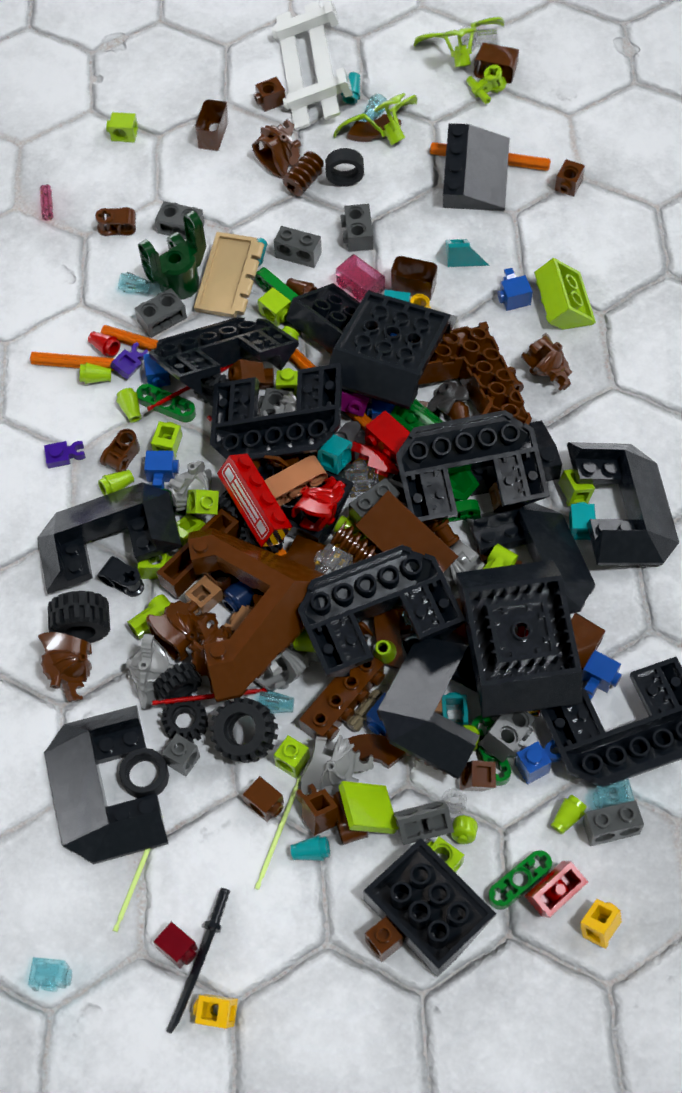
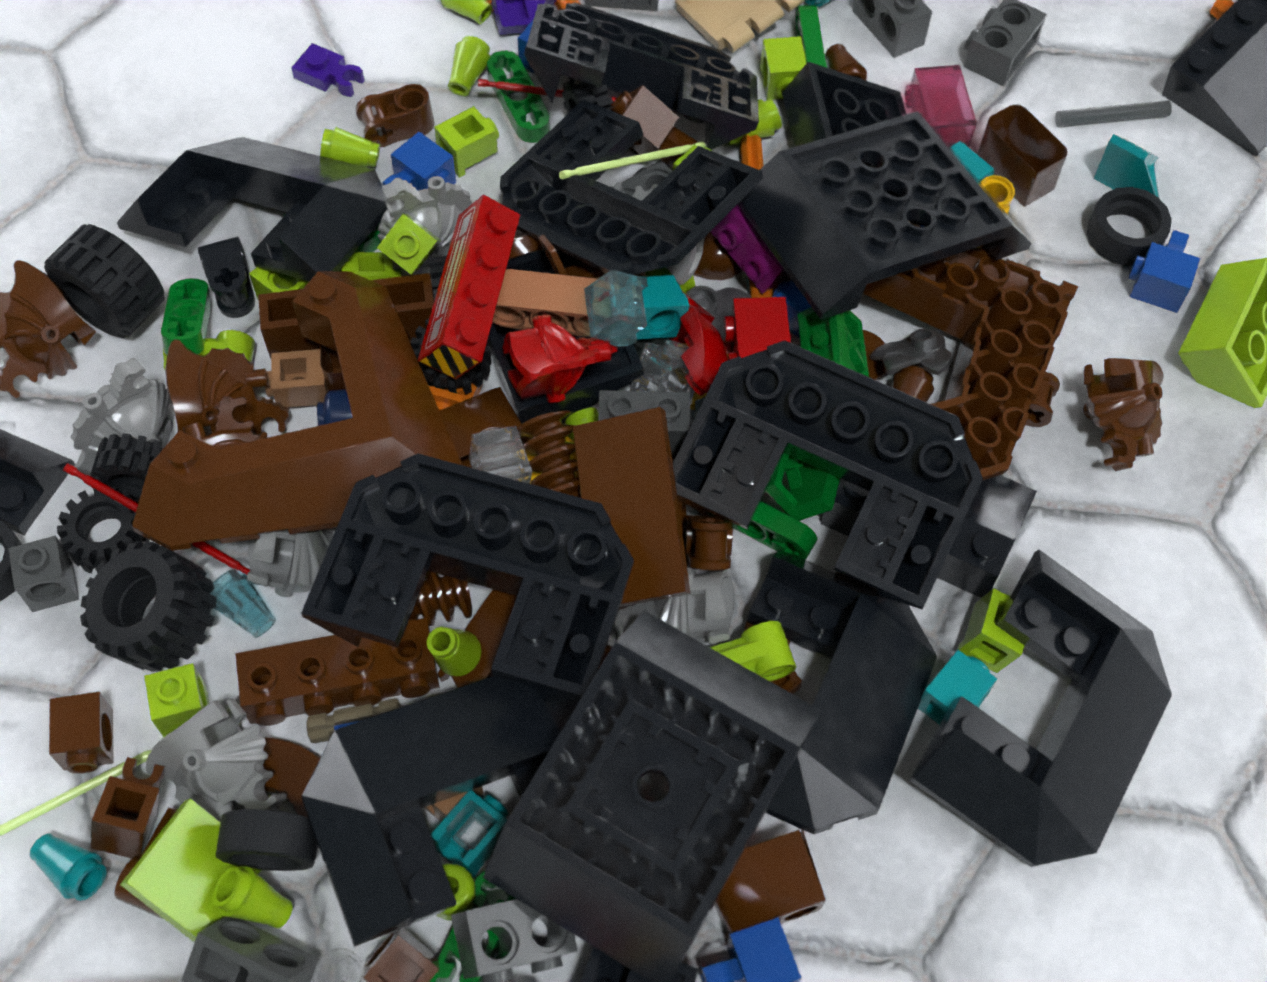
camera: 35 degrees right, 0 degrees up
(124, 600) = (187, 314): none -> green beam
(260, 401) = (628, 161): none -> yellowish green piece
(329, 464) = (616, 307): none -> clear light blue brick
(387, 771) = (266, 840): none -> black tyre
(396, 799) = (248, 897): none -> lime cone
(431, 231) = (1113, 113): none -> dark grey bar
(482, 266) = (1134, 203): none -> black tyre

